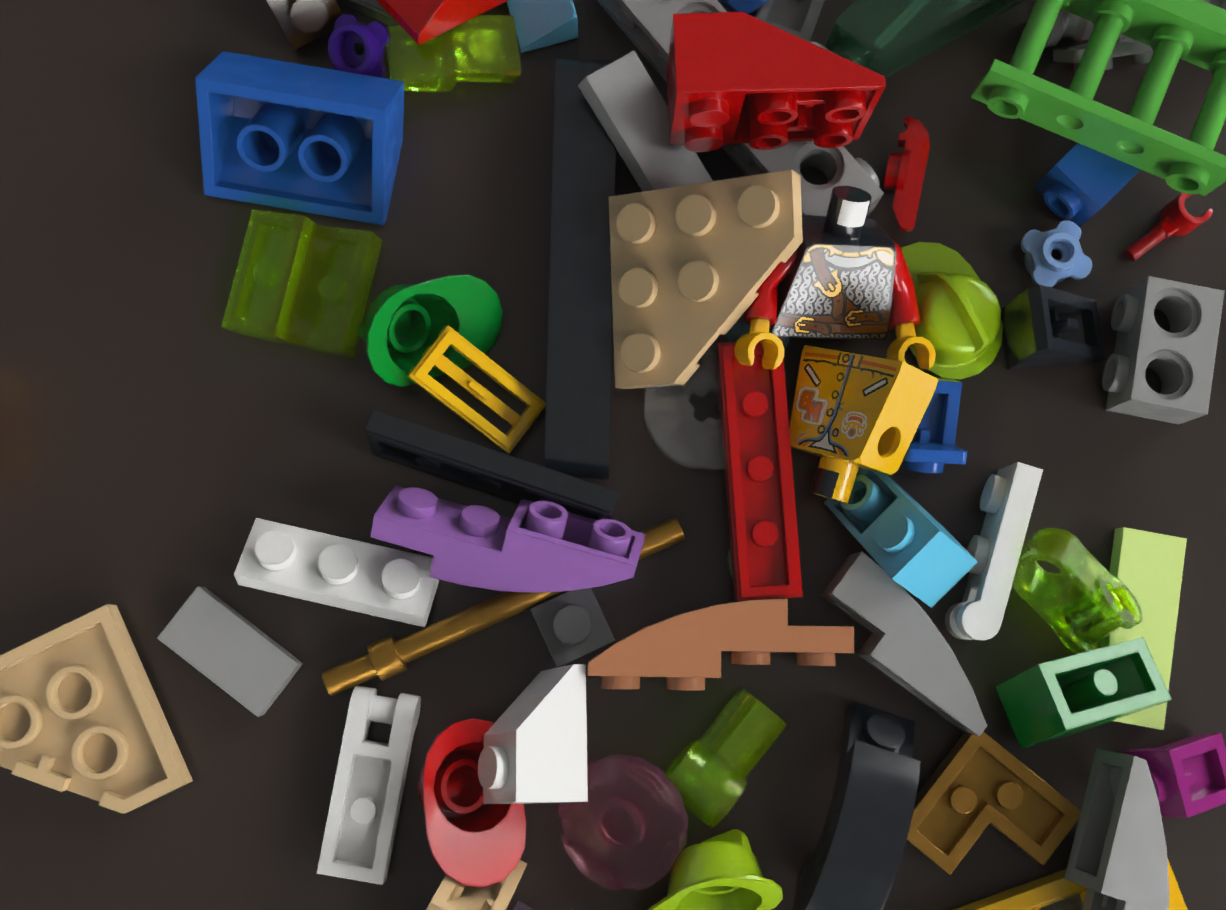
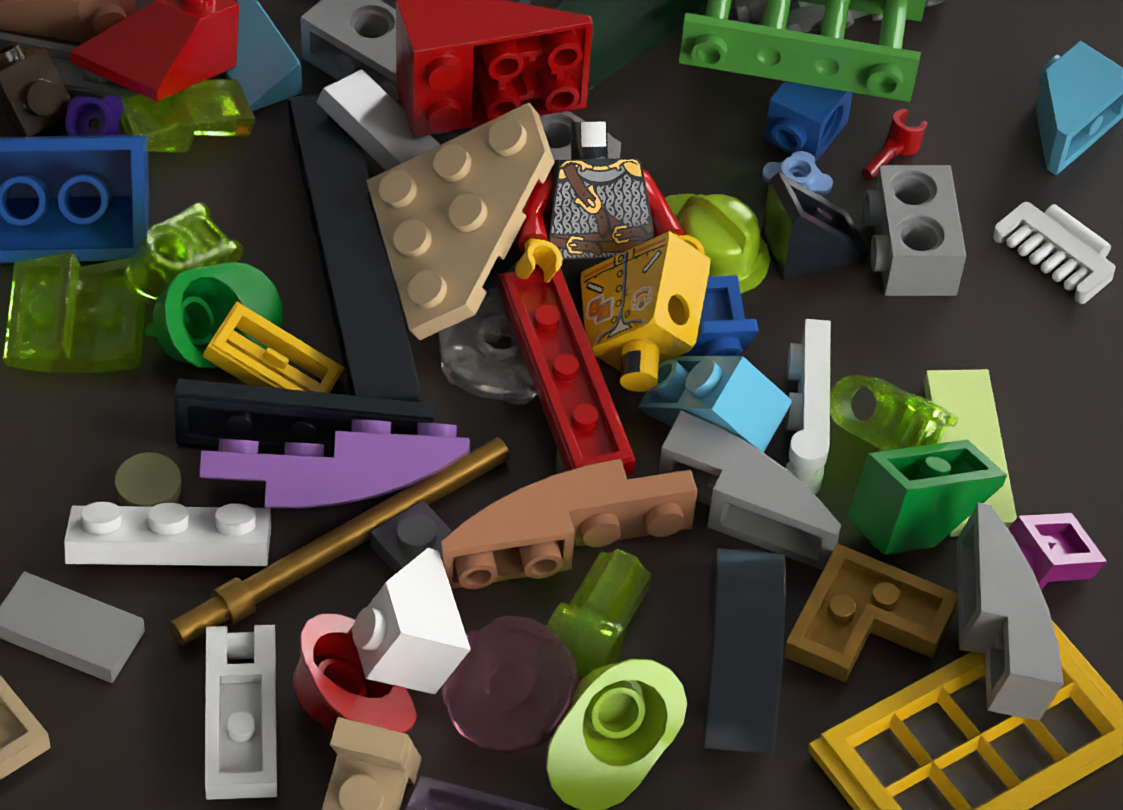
camera: 15 degrees left, 30 degrees down
(334, 503) = (148, 480): none -> olive tile
(417, 237) = (176, 246): none -> clear neon green piece
(906, 173) = (640, 136): red piece -> none

